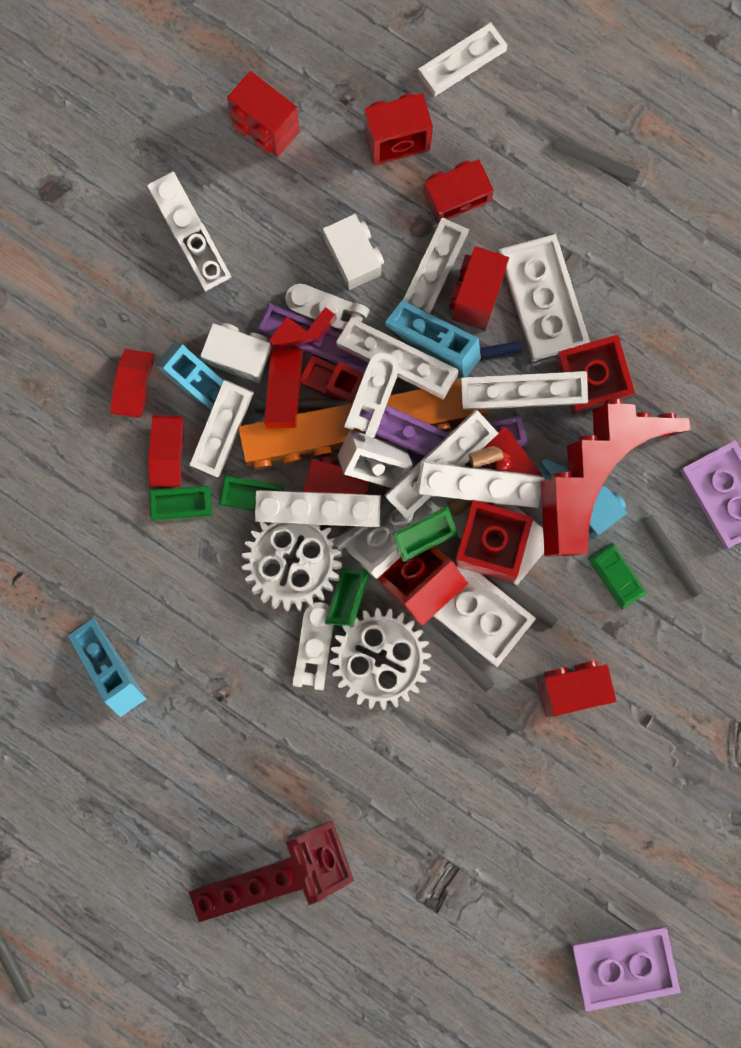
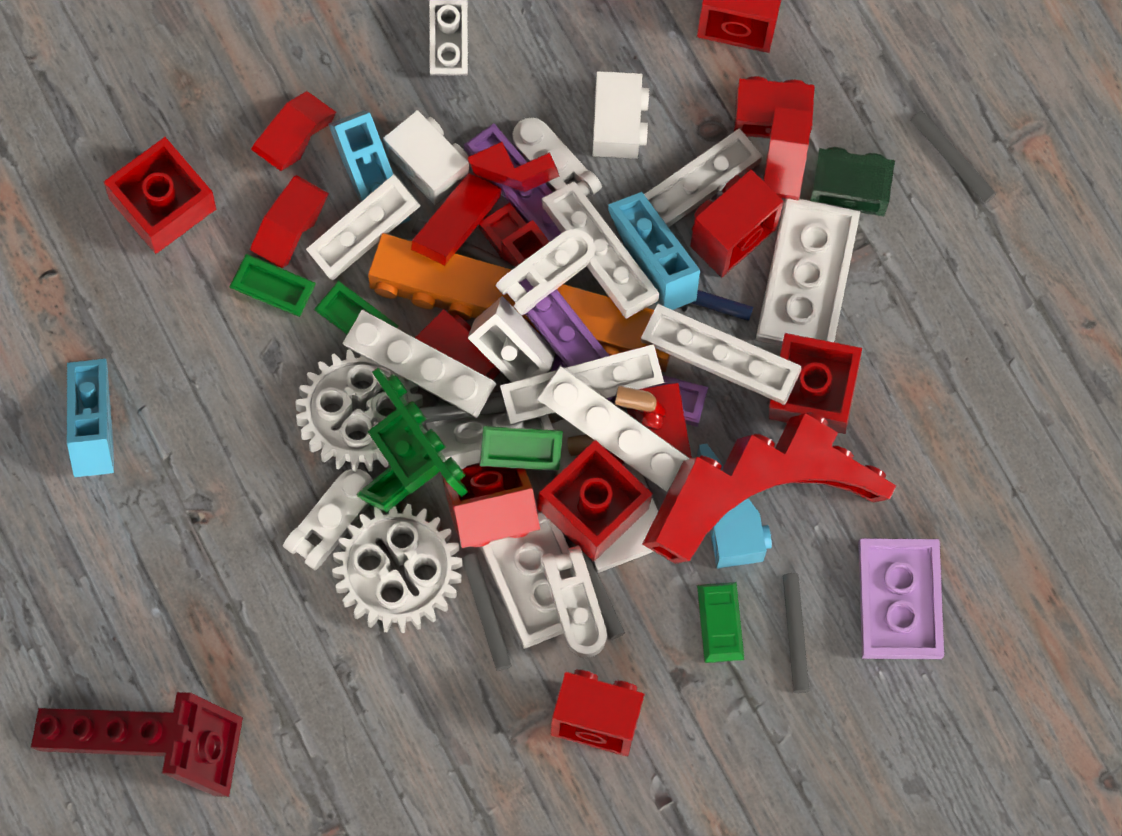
camera: 25 degrees right, 10 degrees down
(65, 481) = (160, 195): none -> red brick
(344, 573) = (407, 445): none -> green bracket
(487, 217) = (787, 151): none -> red slope
(518, 619) = (575, 602): none -> white plate
(539, 214) = (852, 180): none -> clear green brick

